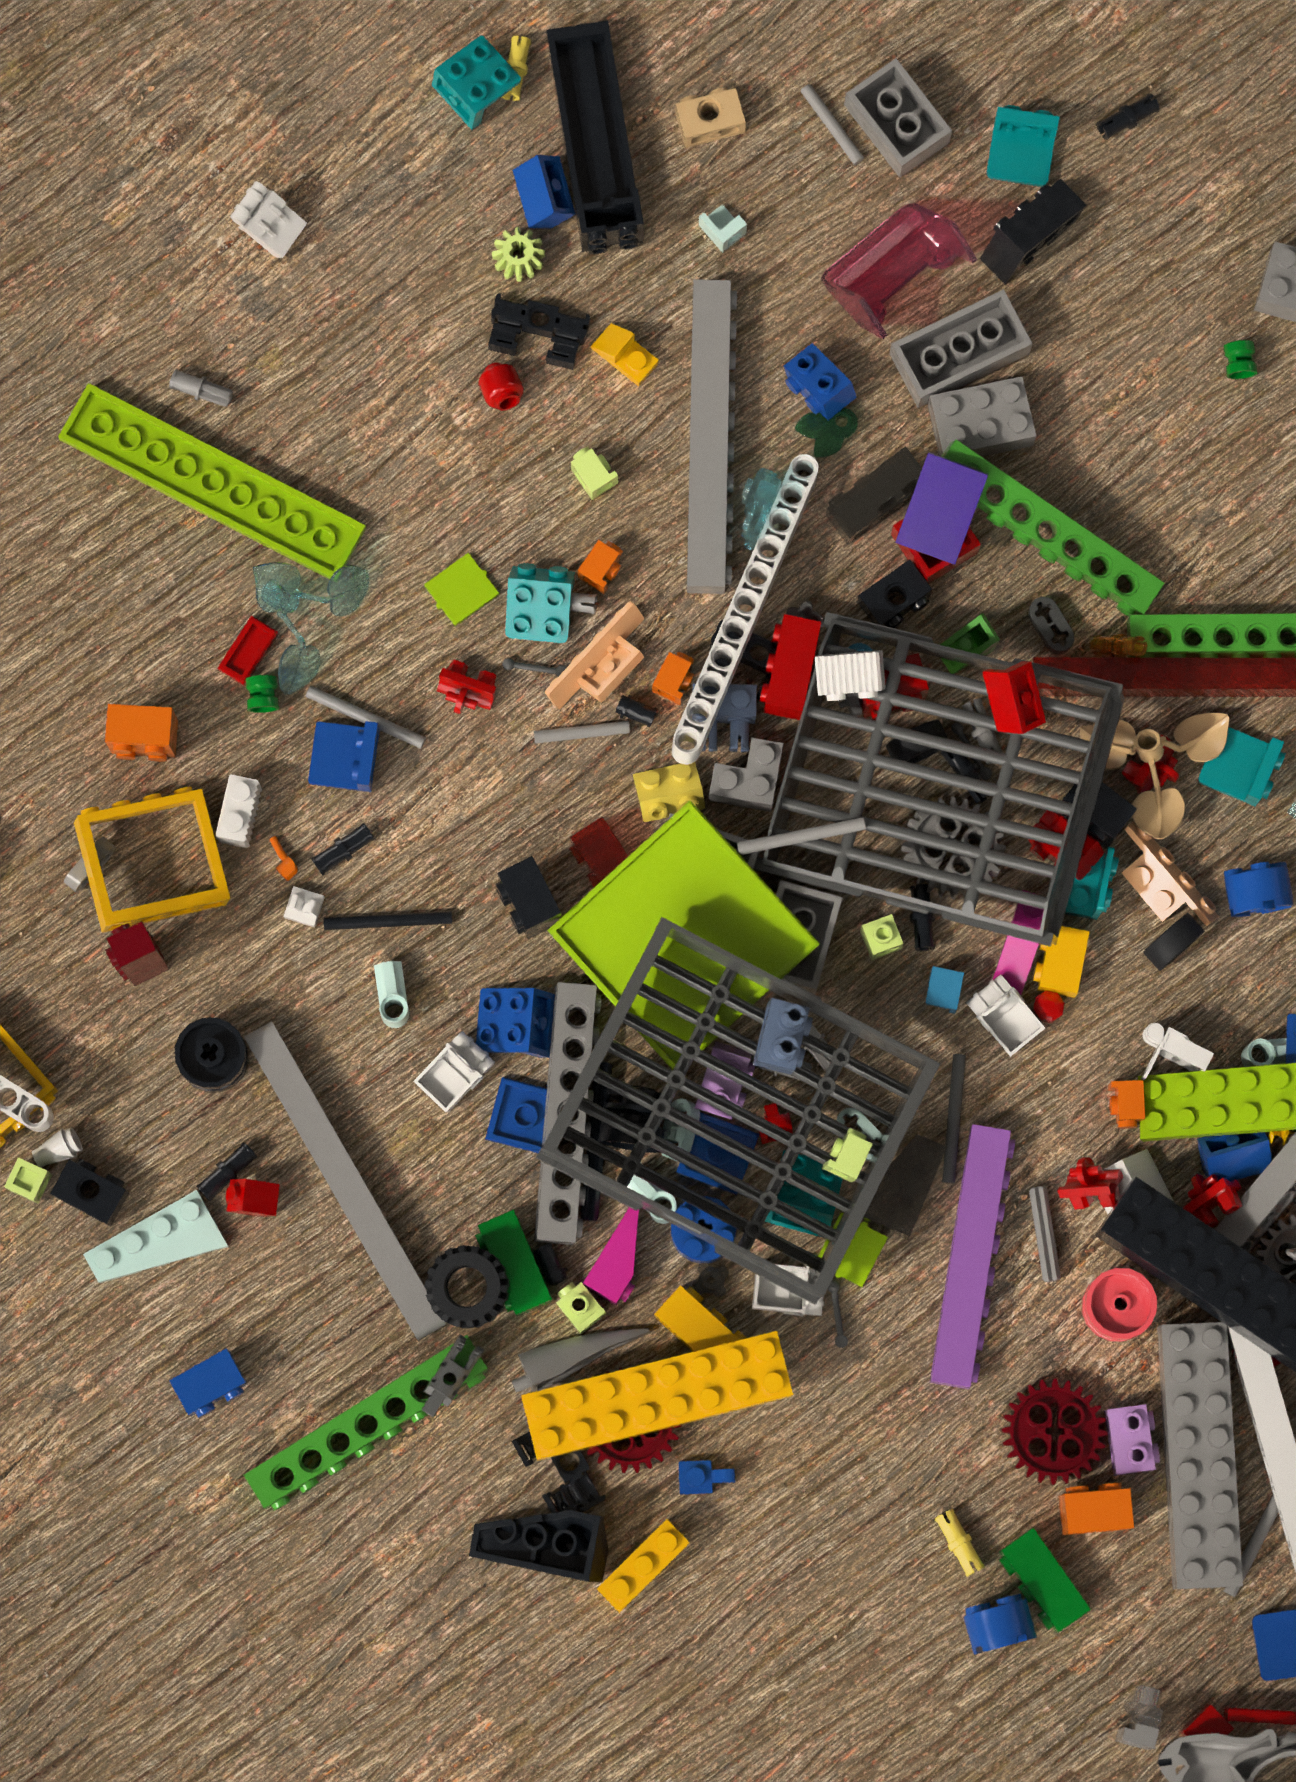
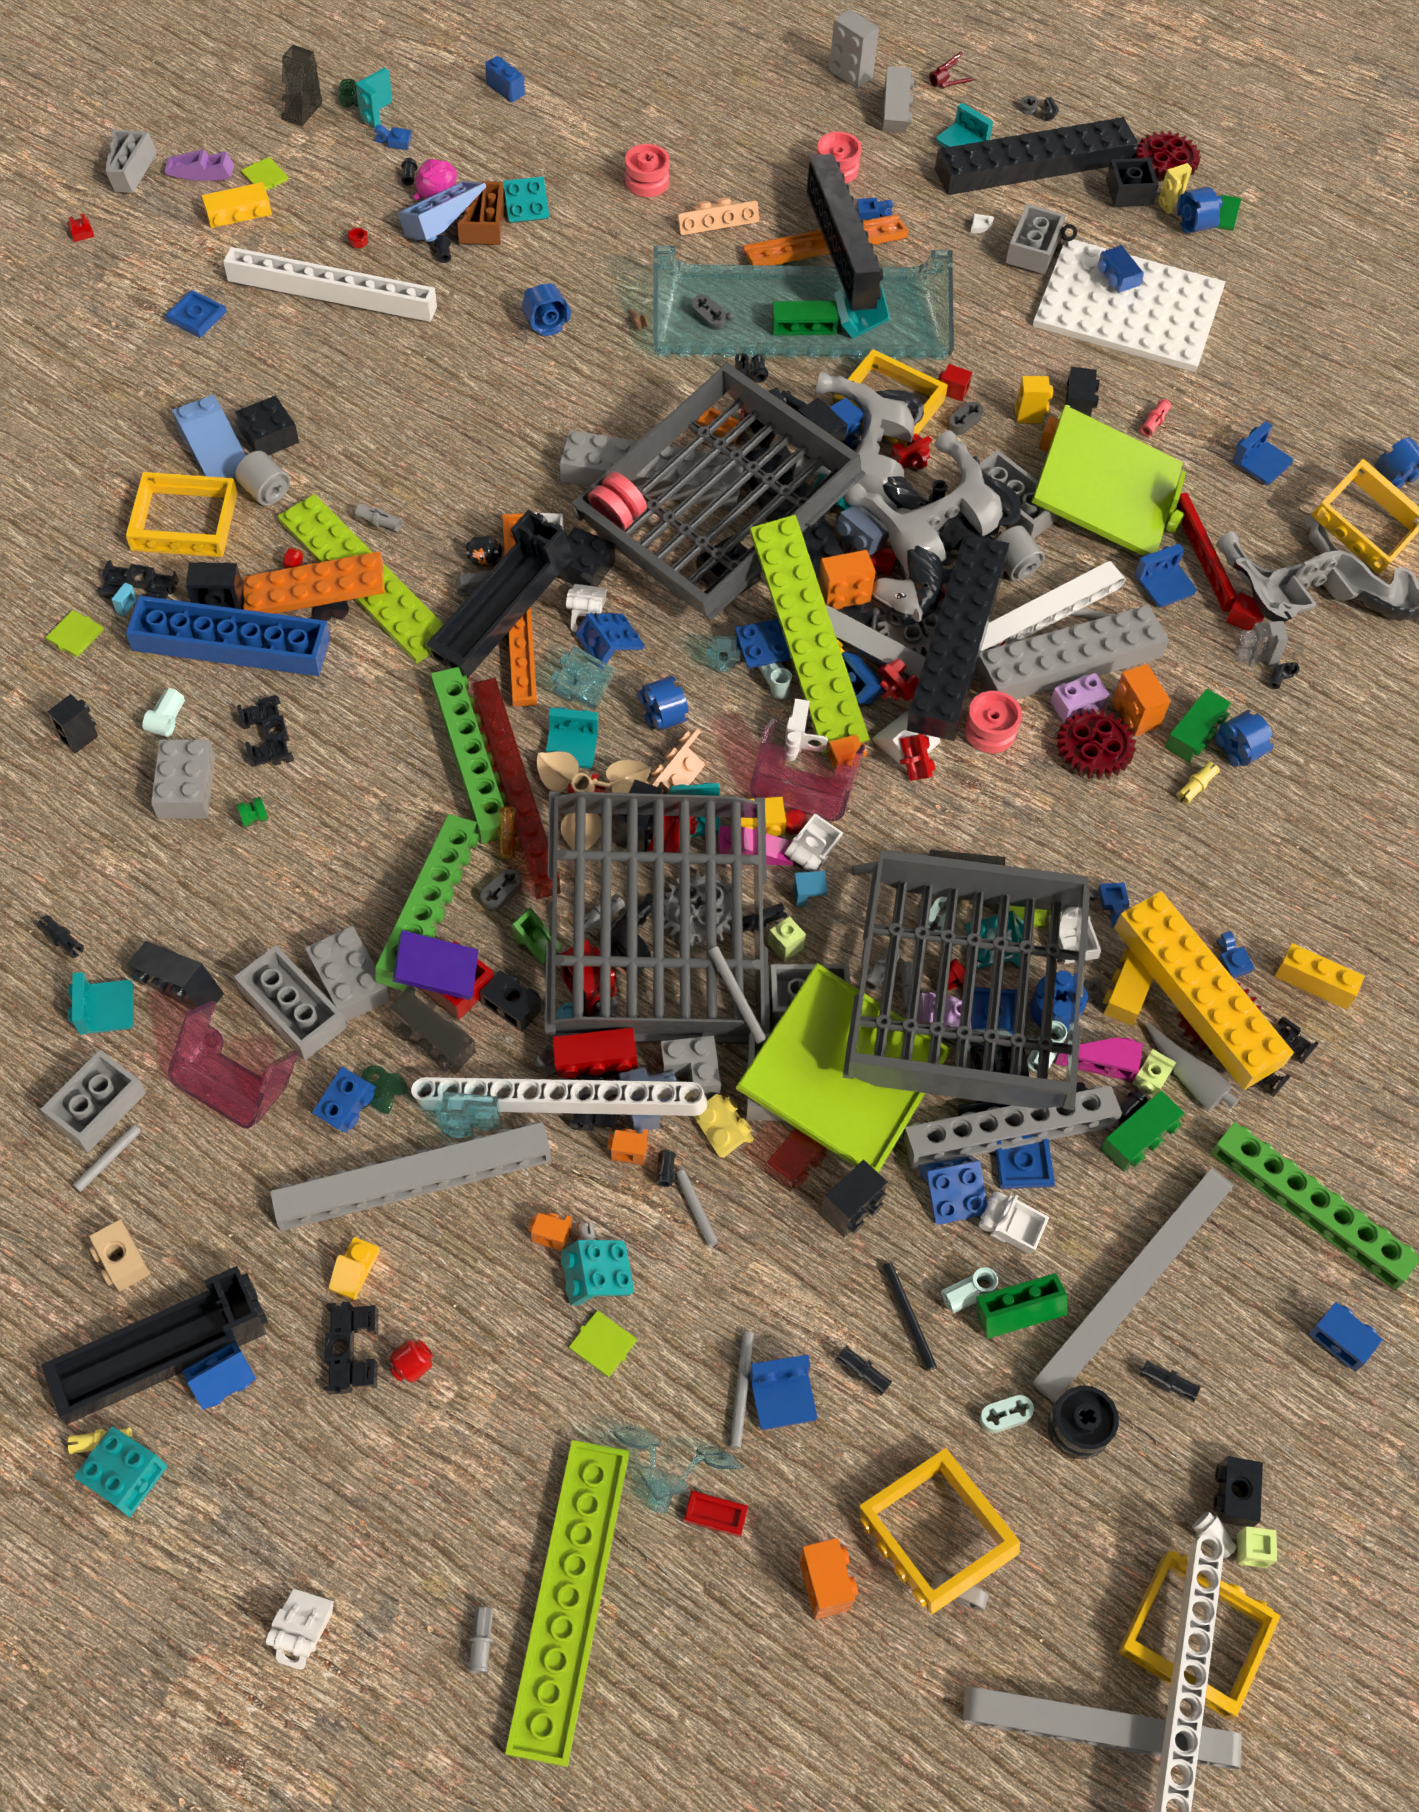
camera: 110 degrees left, 20 degrees down
(135, 953) = (1035, 1503): dark red brick -> none
(167, 1236) = (1247, 1420): light aqua wing -> none
(238, 811) = (865, 1469): white brick -> none
(242, 983) = (1004, 1407): none -> light aqua beam
(252, 1197) = (1184, 1348): red brick -> none
(262, 693) = (752, 1484): green wheel -> none
(287, 867) = (895, 1414): orange hand -> none
(304, 906) = (923, 1390): white tile -> none
(354, 1038) = (1021, 1305): none -> green brick
(438, 1389) = (1258, 1142): dark grey hinge -> none
(439, 1278) = (1199, 1134): black tyre -> none
(466, 690) = (695, 1308): red hips -> none
(509, 664) = (650, 1241): dark grey hinge -> none
(524, 243) = (281, 1393): yellowish green gear -> none
(553, 1543) = (1340, 1042): black wedge -> none
(593, 472) = (470, 1260): yellowish green brick -> none
(602, 662) = (635, 1202): light nougat bracket -> none
(722, 227) = (221, 1218): light aqua panel -> none
(782, 1036) = (902, 964): sand blue brick -> none
(824, 1360) = (1114, 898): none -> blue plate
(848, 1155) = (971, 897): yellowish green brick -> none
(850, 673) = (598, 986): white brick -> none
(970, 1257) = (997, 823): medium lavender brick -> none
(1014, 698) = (588, 853): red panel -> none
(1044, 1234) = (960, 784): light grey axle -> none
(1096, 1028) = (802, 789): none -> clear pink windscreen
(1099, 1738) = (1283, 672): none -> black arm
(1173, 941) = (730, 751): black tyre -> none

